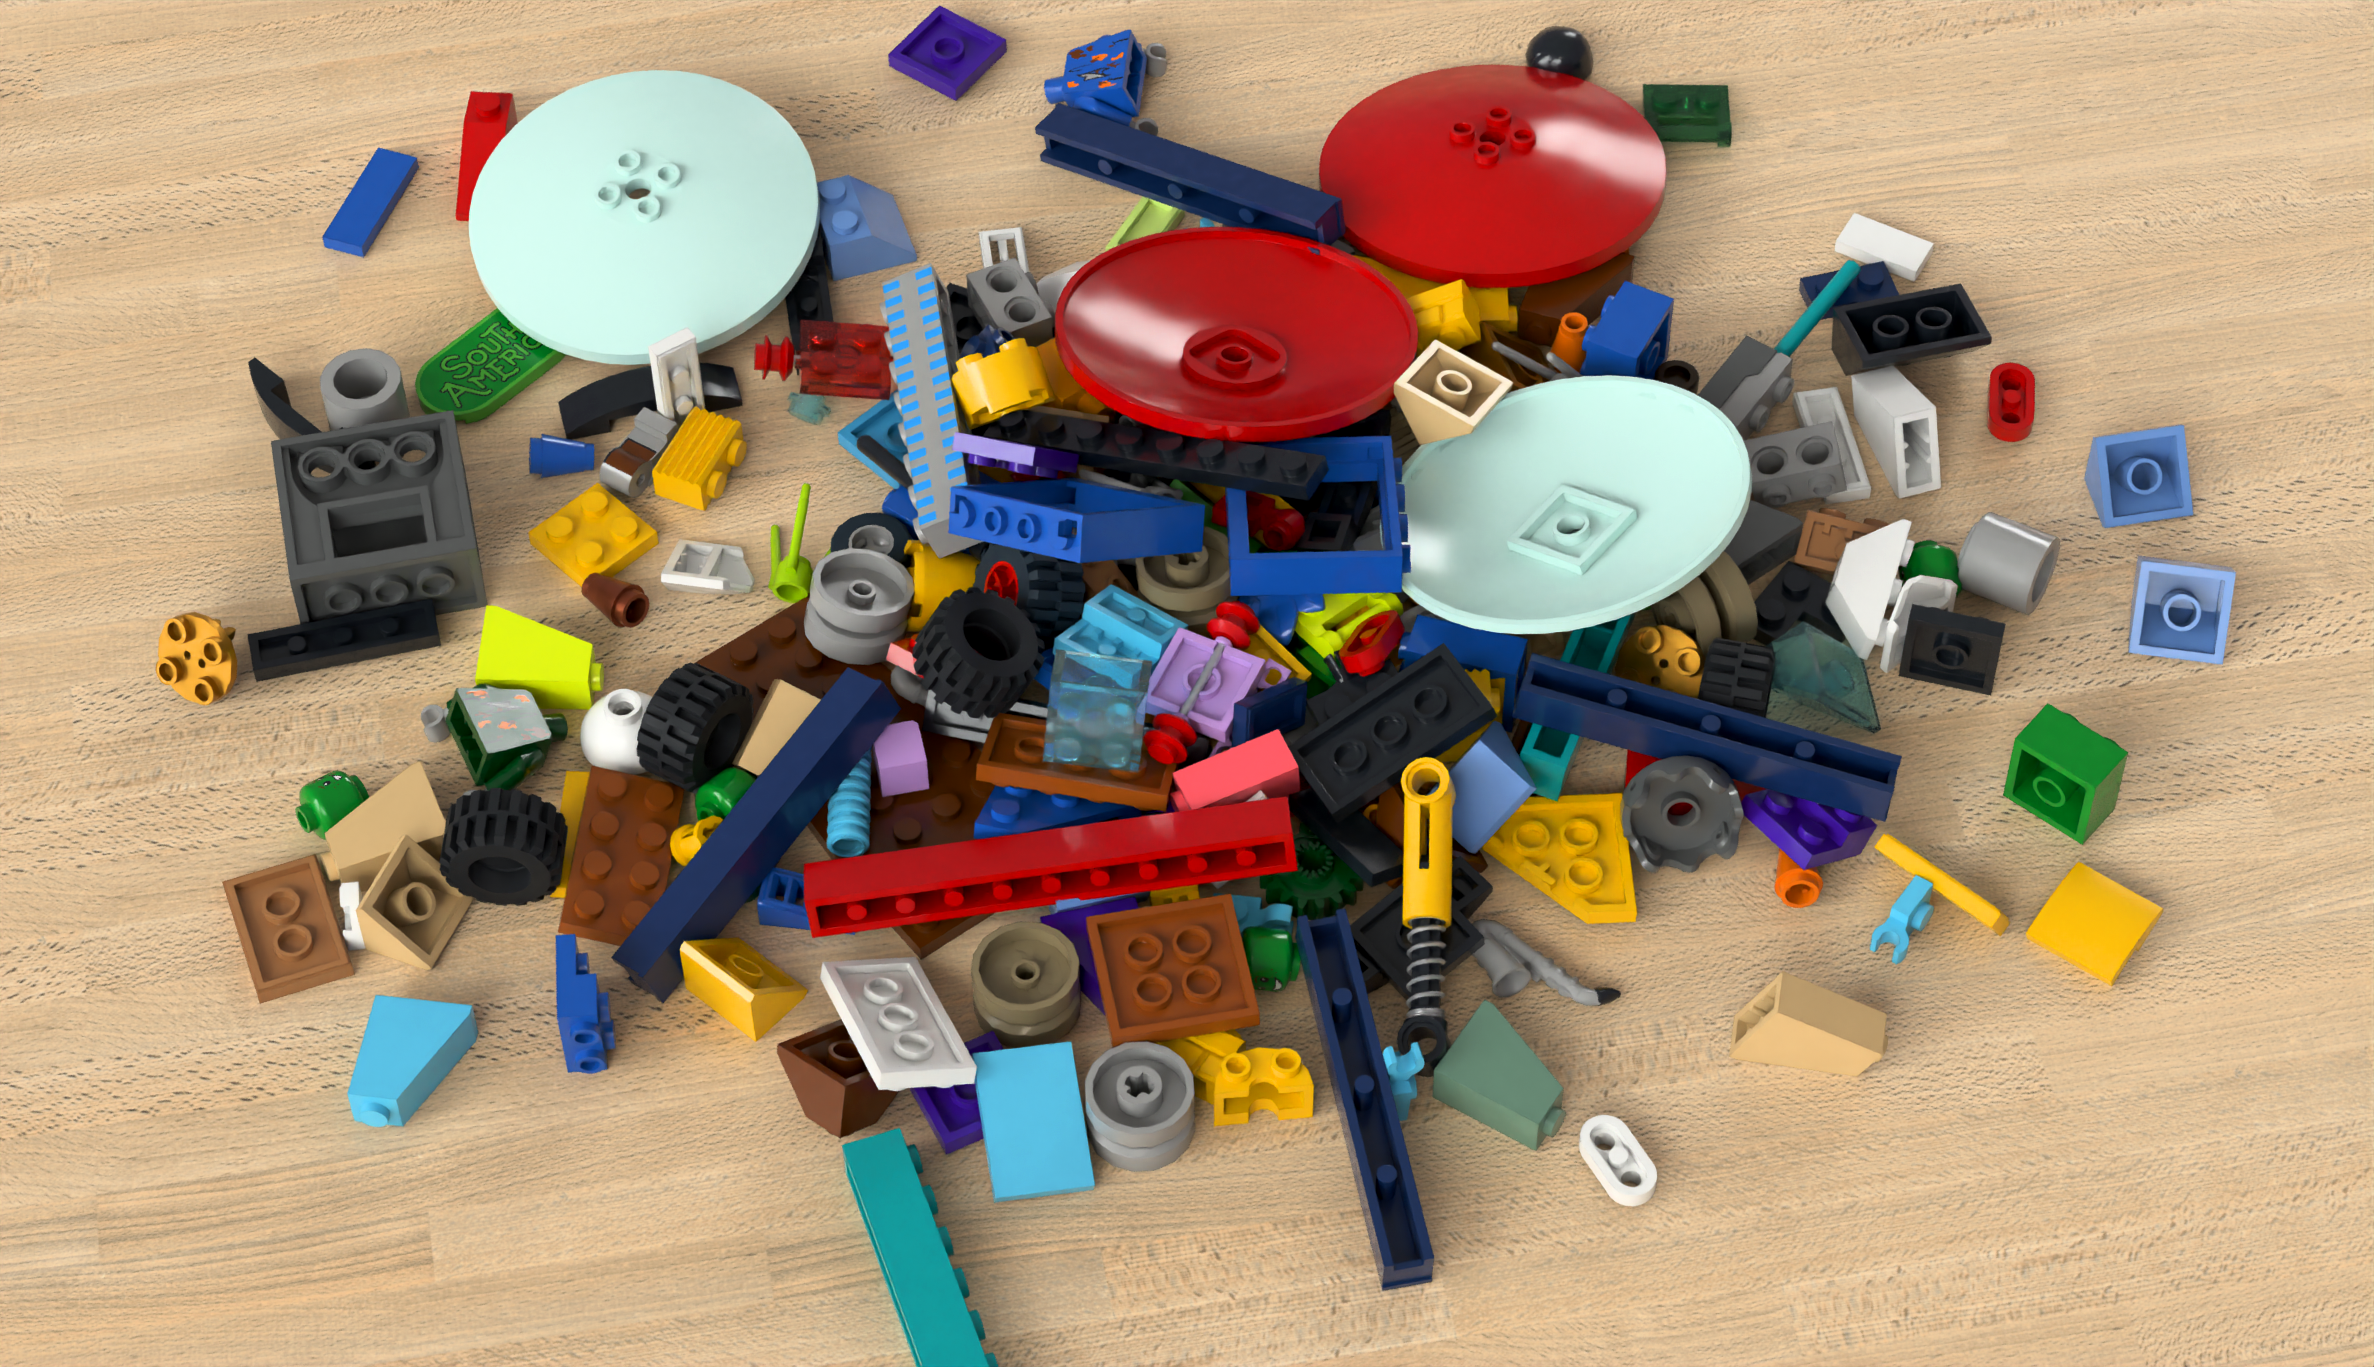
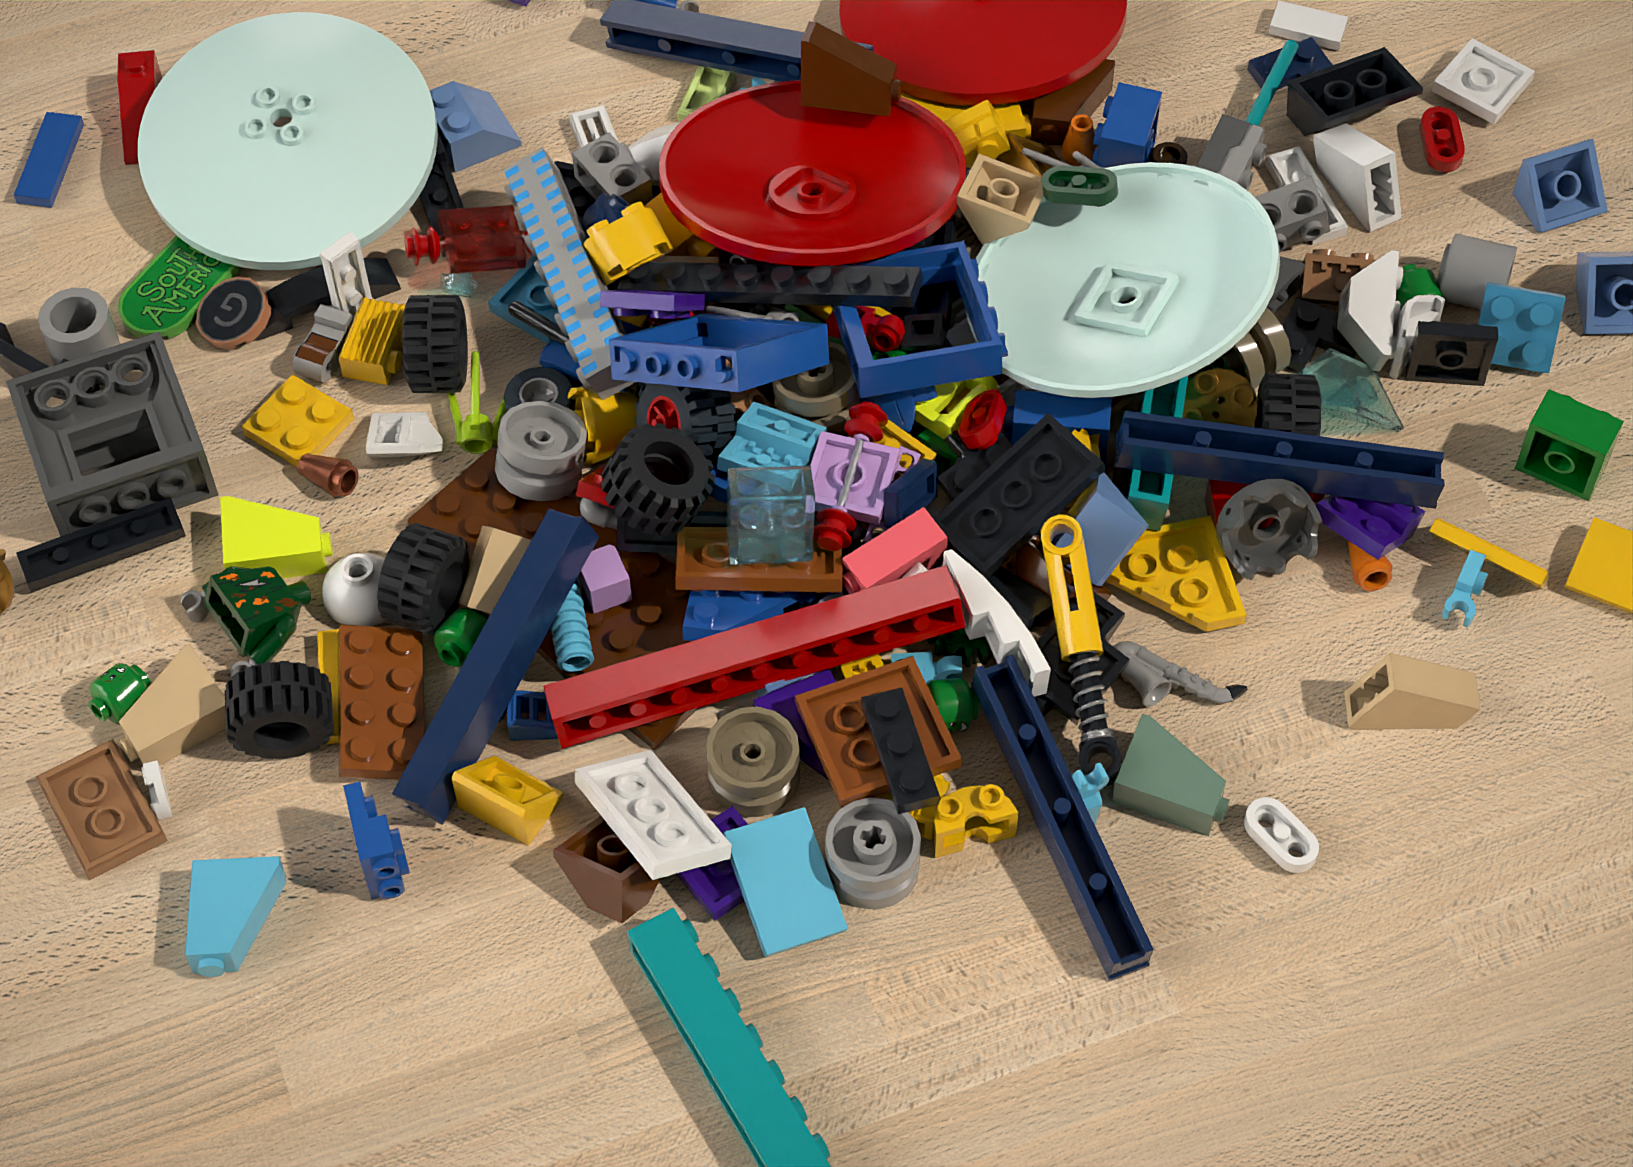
camera: 10 degrees left, 5 degrees up
(410, 907) = (207, 775): tan slope -> none
(544, 402) = (233, 313): none -> tile
(559, 456) = (254, 356): blue cone -> none
(690, 838) = (439, 685): yellow bush -> none
(764, 469) = (435, 343): none -> black tyre
(1190, 994) = (900, 750): none -> black plate
(1299, 227) = (845, 74): none -> reddish brown slope
(1330, 863) = (992, 616): none -> white slope
(1542, 392) = (1079, 185): none -> dark green plate
(2044, 630) = (1525, 323): none -> dark azure plate
(2078, 341) = (1483, 81): none -> white plate

